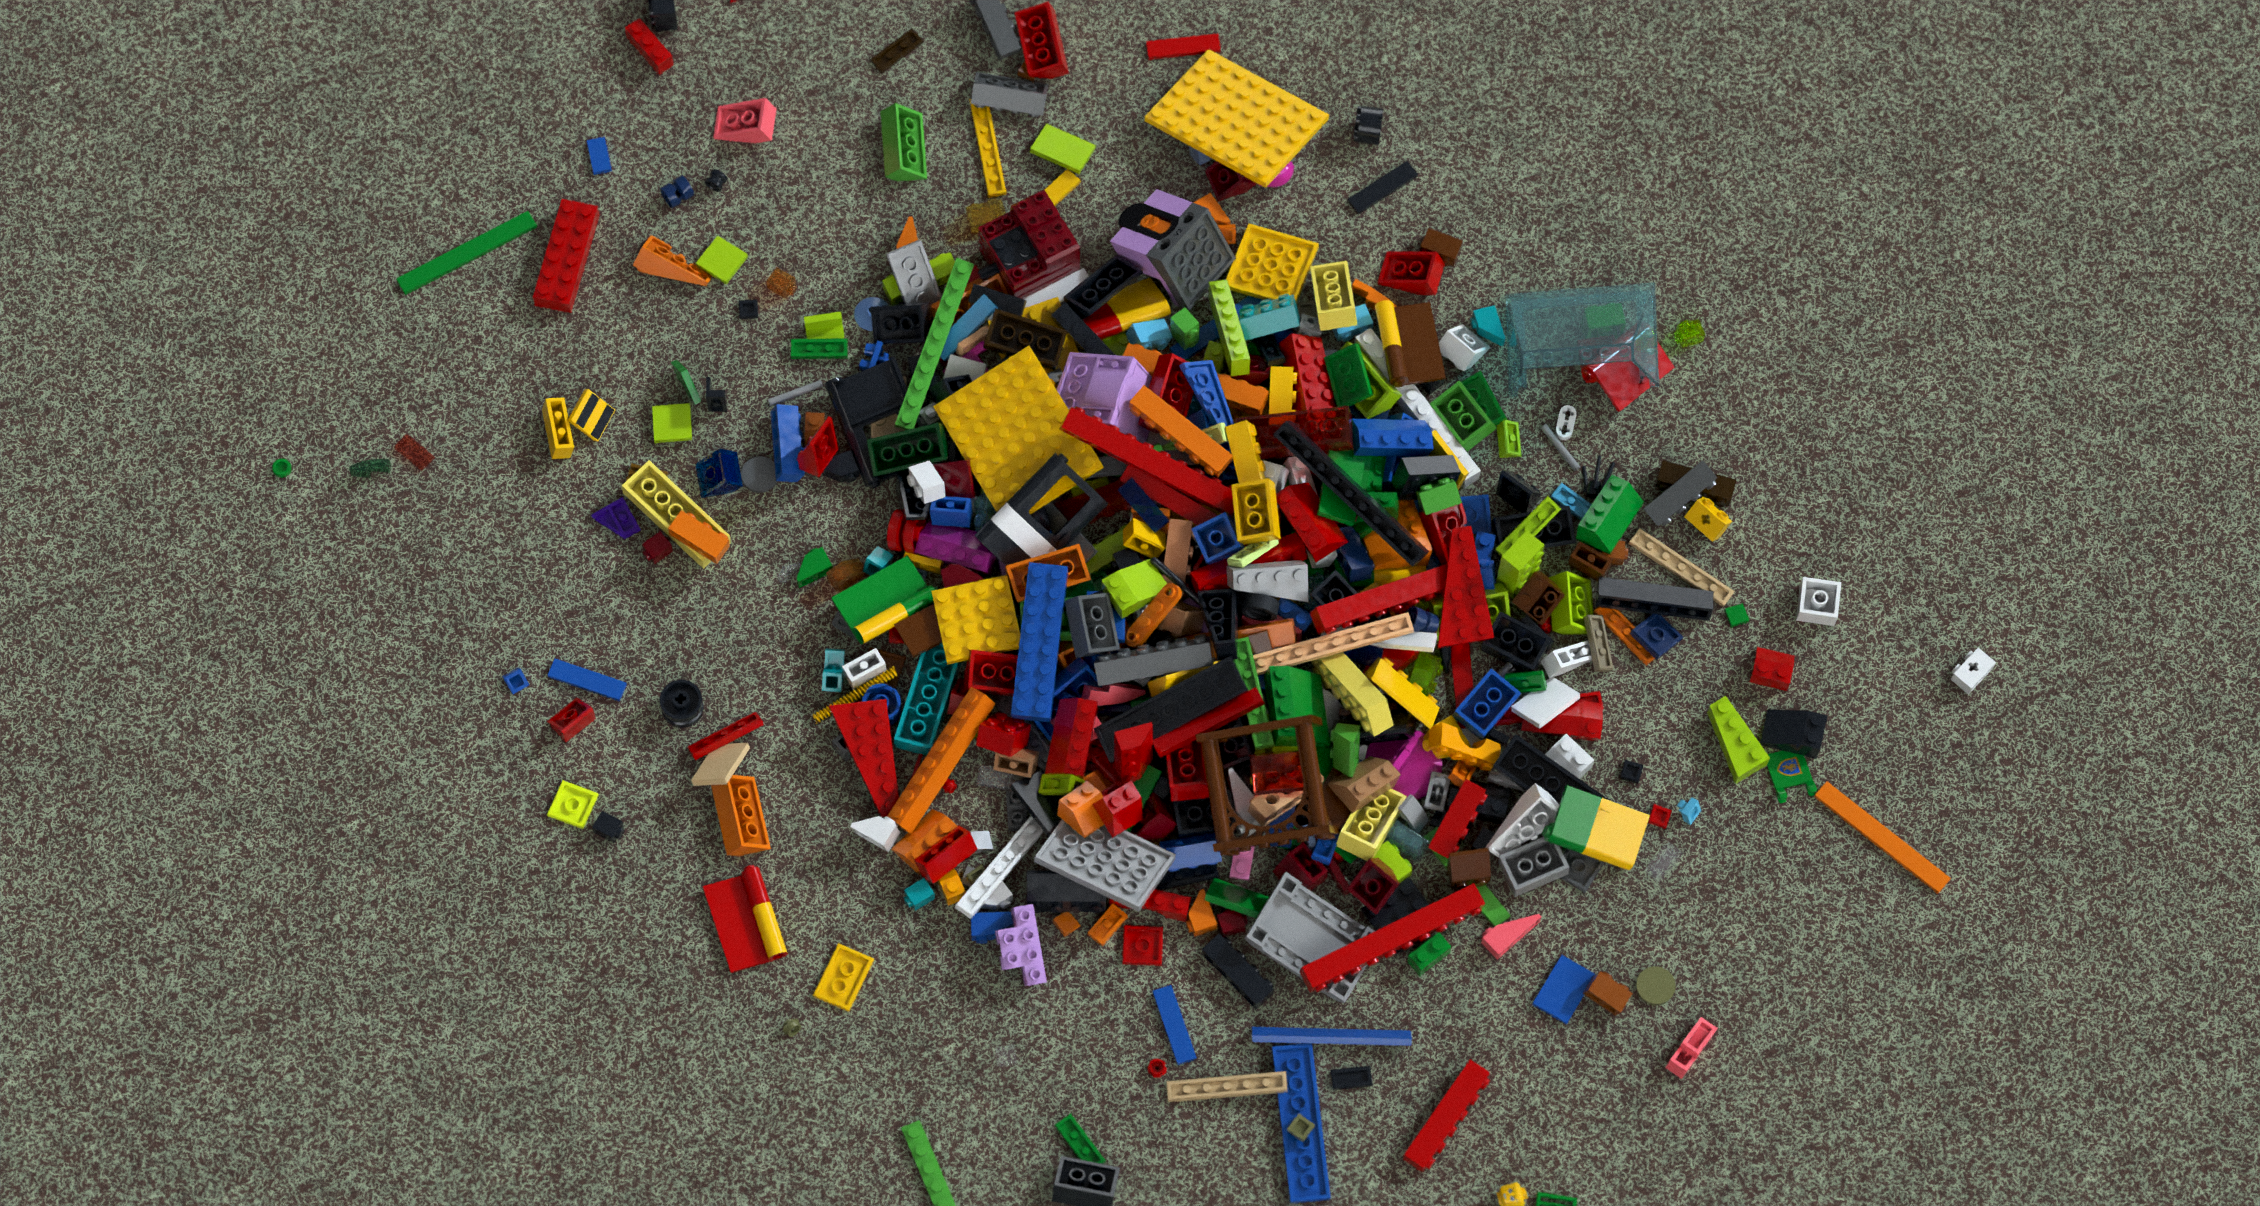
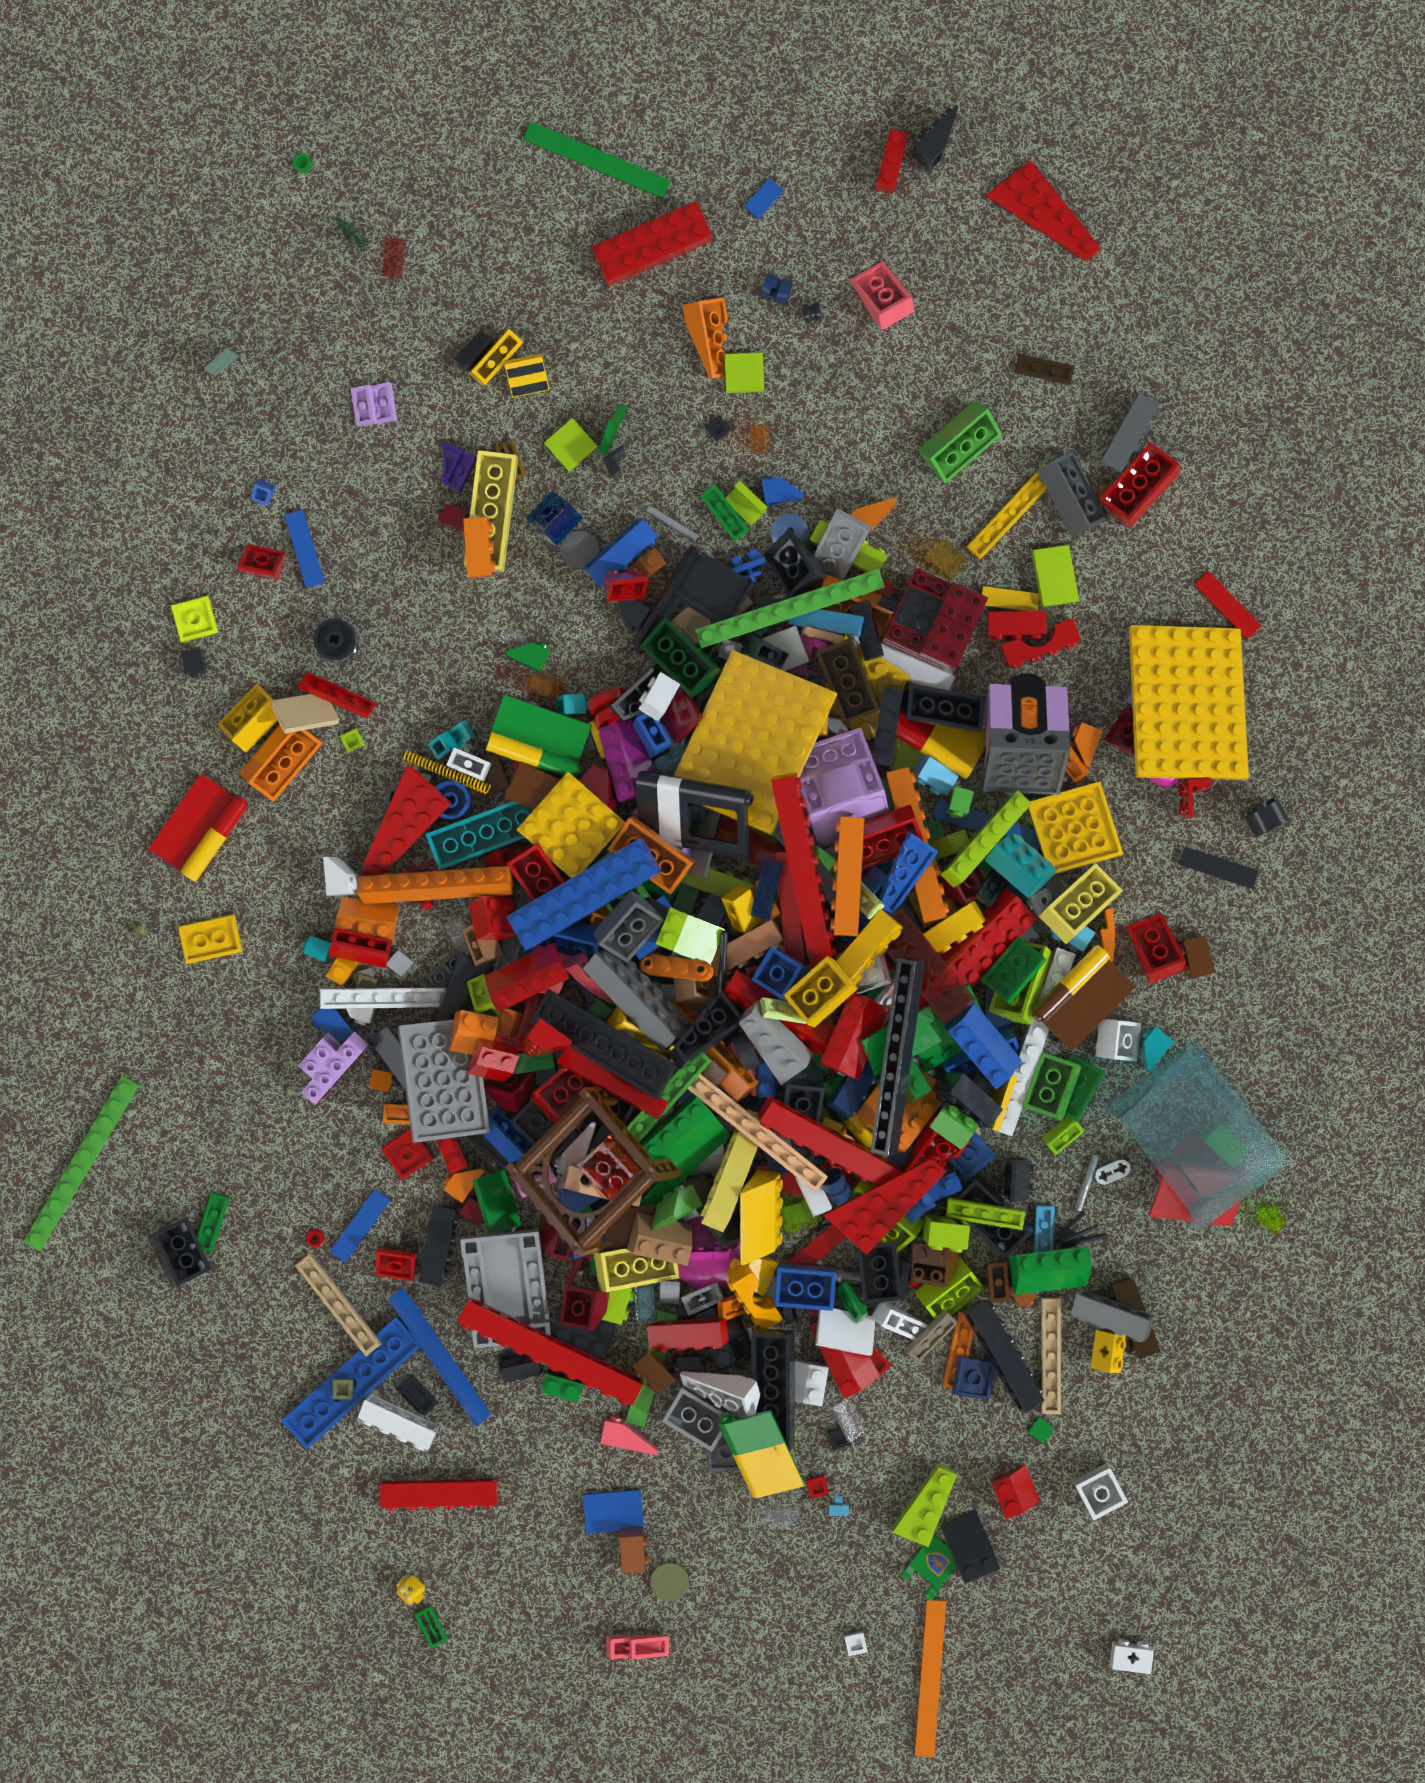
camera: 55 degrees right, 20 degrees up
(387, 633) = (221, 362): none -> sand green piece
(516, 547) = (365, 408): none -> lavender slope
(538, 442) = (474, 350): none -> black panel
(689, 815) = (249, 718): none -> yellow slope
(771, 751) = (352, 740): none -> lime tile
(835, 296) = (779, 491): none -> blue slope
(1079, 199) = (1016, 625): none -> red brick
(1100, 213) = (1017, 652): none -> red arch
(1227, 1015) = (396, 1263): none -> red slope
(1308, 167) = (1186, 791): none -> red bracket
(1362, 1104) = (398, 1422): none -> white slope
(1386, 978) = (517, 1367): none -> black panel
(1621, 753) = (848, 1420): none -> clear tile
(1812, 874) = (855, 1643): none -> white plate

